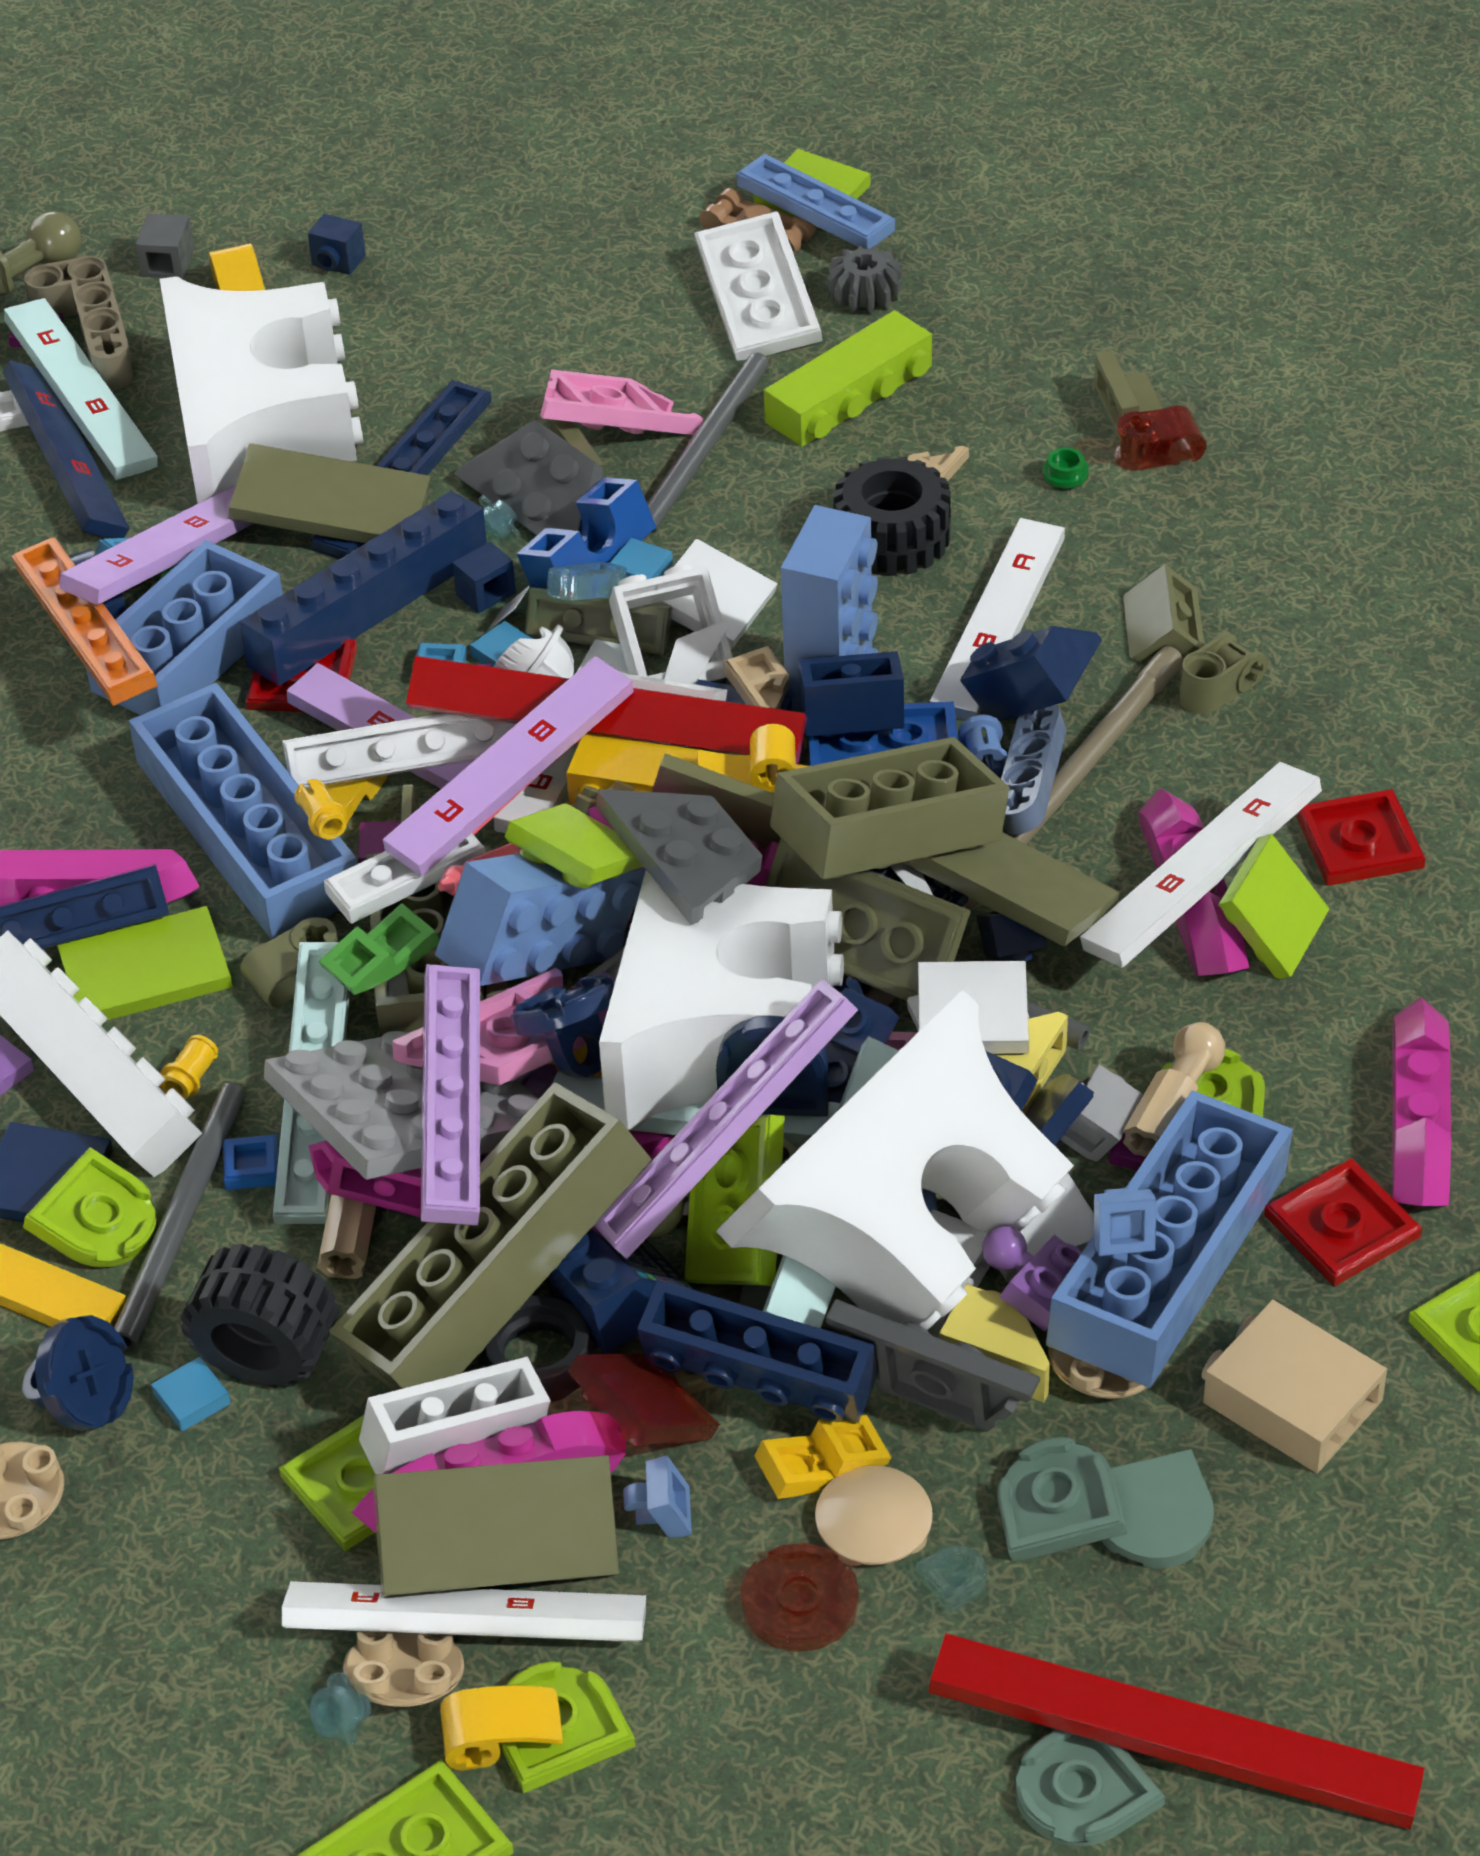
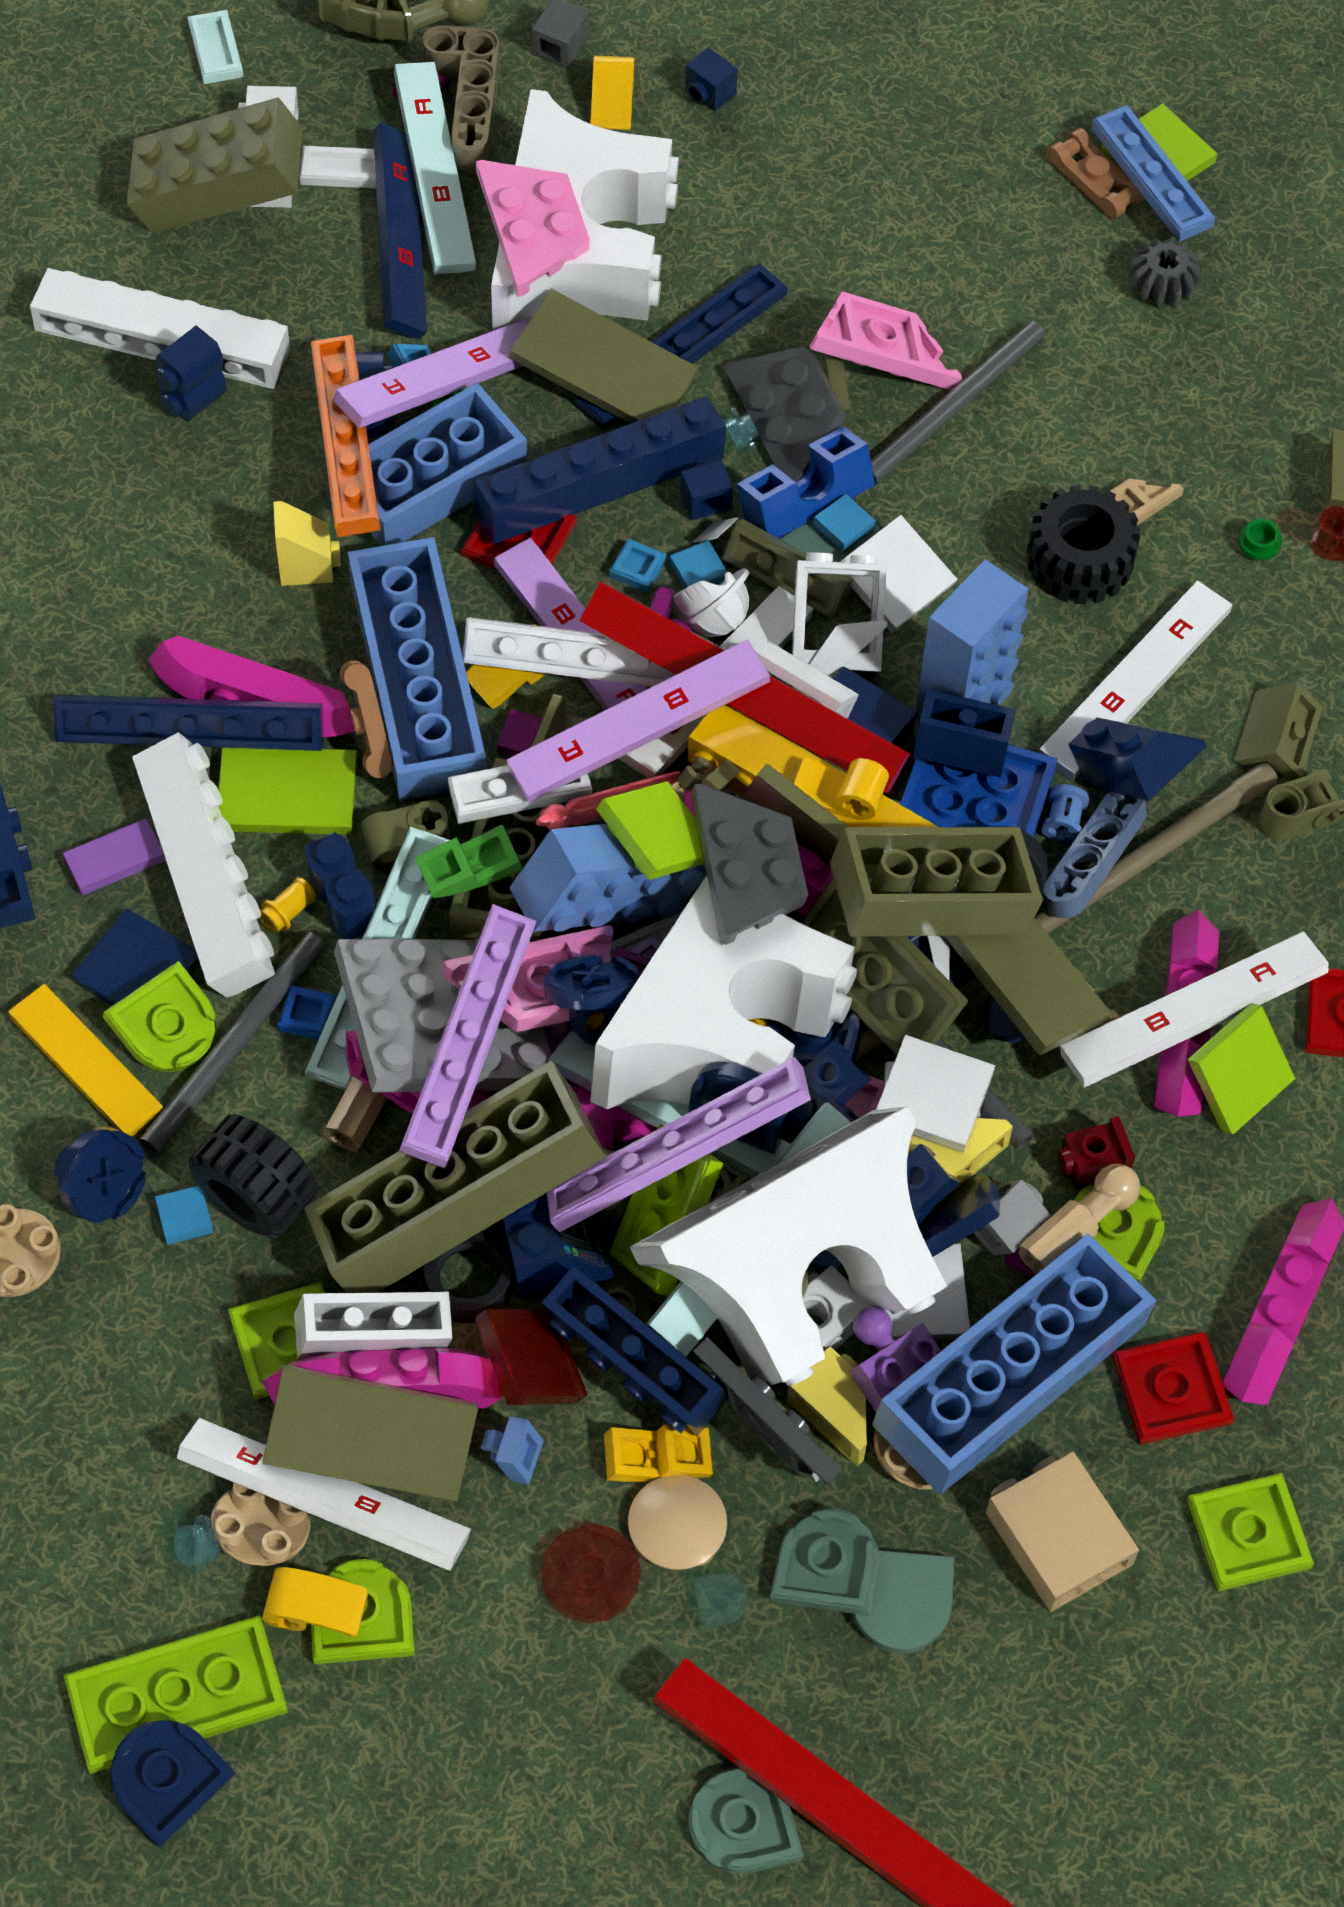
camera: 15 degrees right, 15 degrees up
(75, 738) = (303, 547): none -> light yellow slope
(208, 379) = (533, 219): none -> bright pink wing
(211, 861) = (367, 719): none -> medium nougat plate
(240, 1025) = (340, 885): none -> dark blue brick
(325, 816) = (471, 714): yellow pin -> none
(584, 580) = (787, 531): clear light blue beam -> none
(758, 286) = (1066, 249): white tile -> none
(758, 678) = (894, 690): tan tile -> none
(848, 378) = (1106, 379): lime brick -> none
(1124, 1221) = (967, 1352): medium blue tile -> none
(1150, 1031) = (1082, 1164): none -> dark red brick

